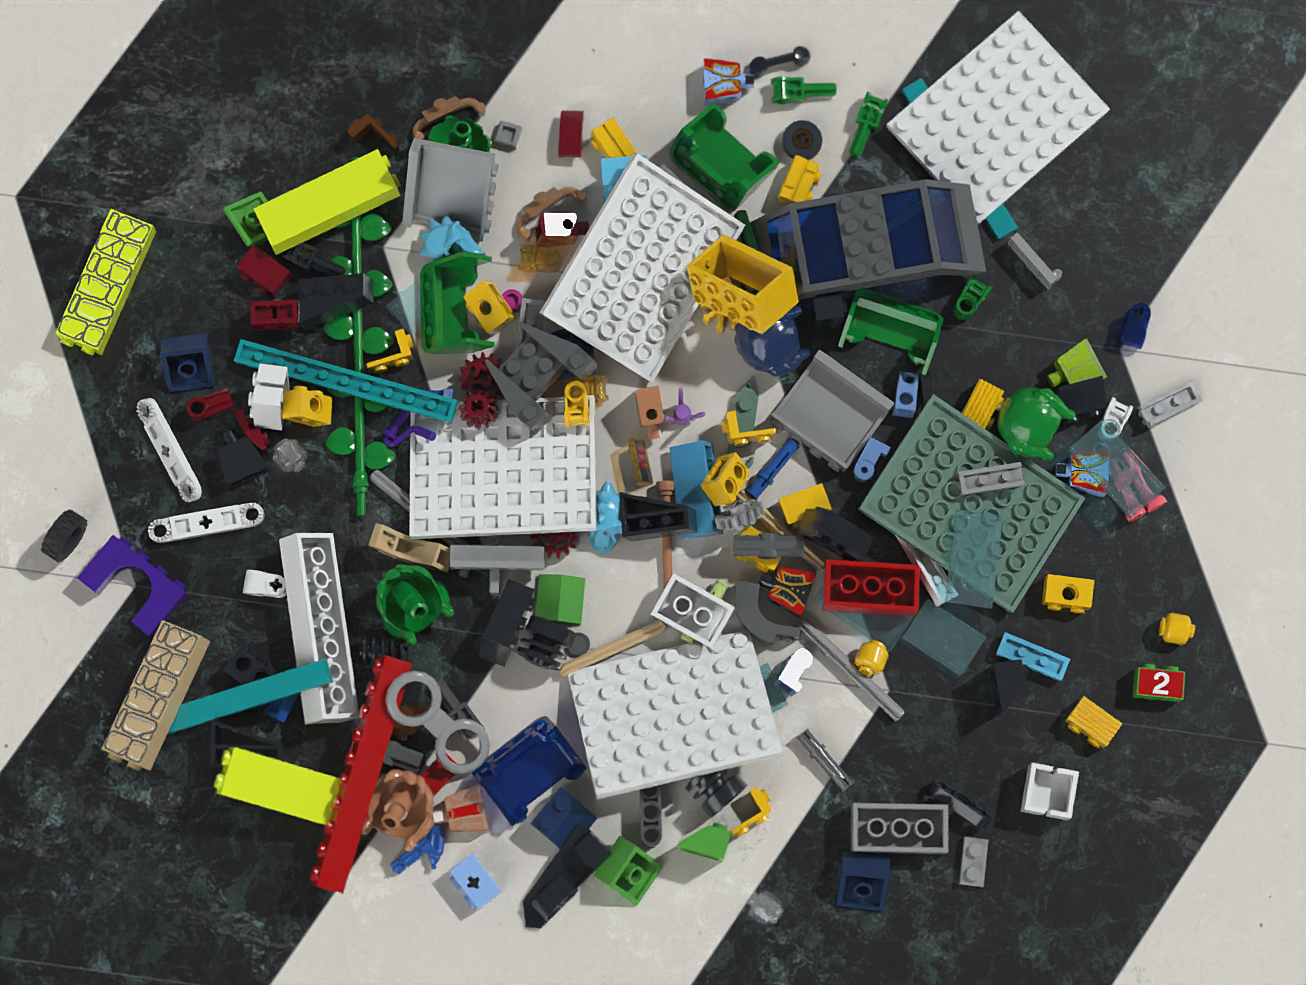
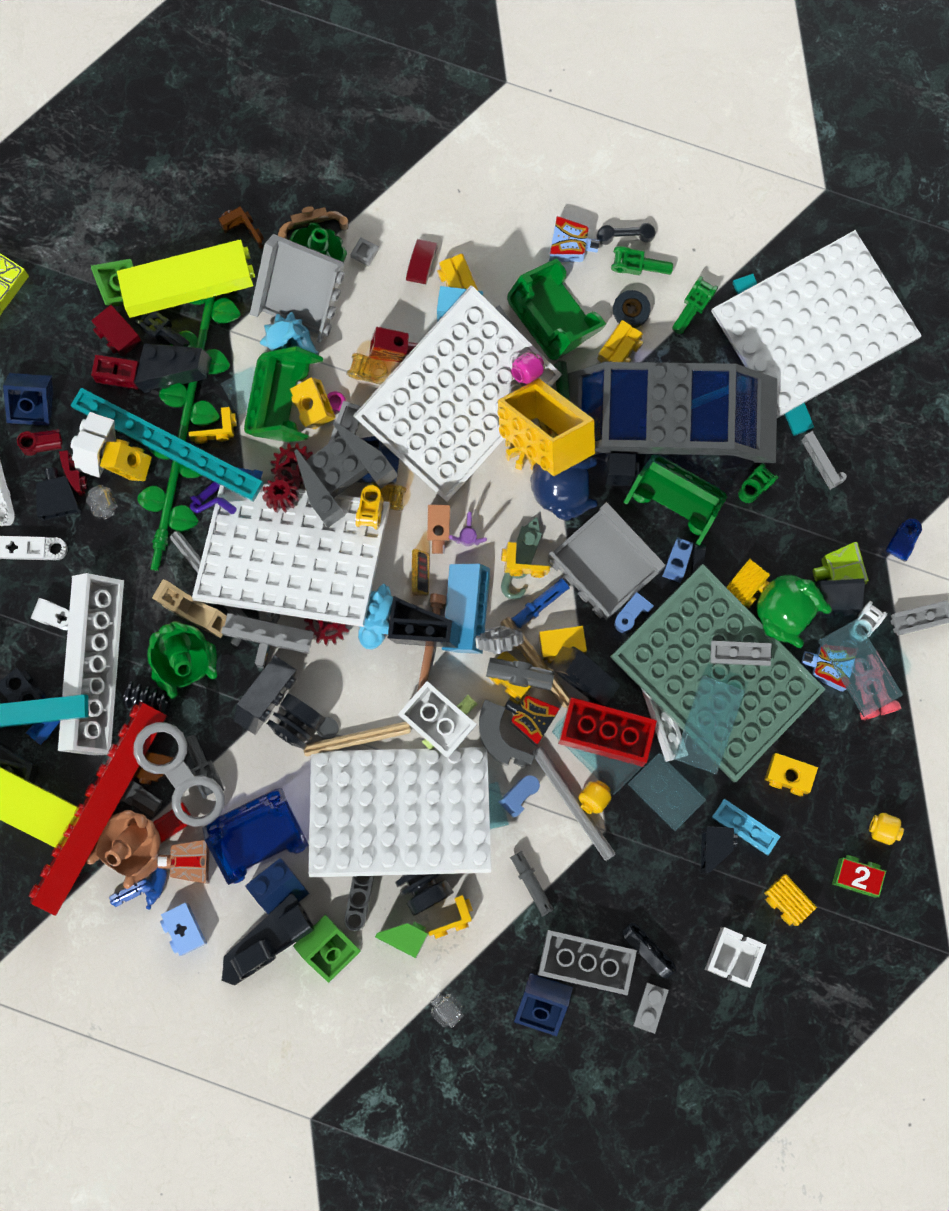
camera: 15 degrees right, 0 degrees up
(543, 201) = (382, 318): medium nougat piece -> none
(560, 598) = (319, 683): bright green slope -> none
(709, 226) = (527, 367): none -> dark pink head
(725, 479) = (493, 604): yellow brick -> none

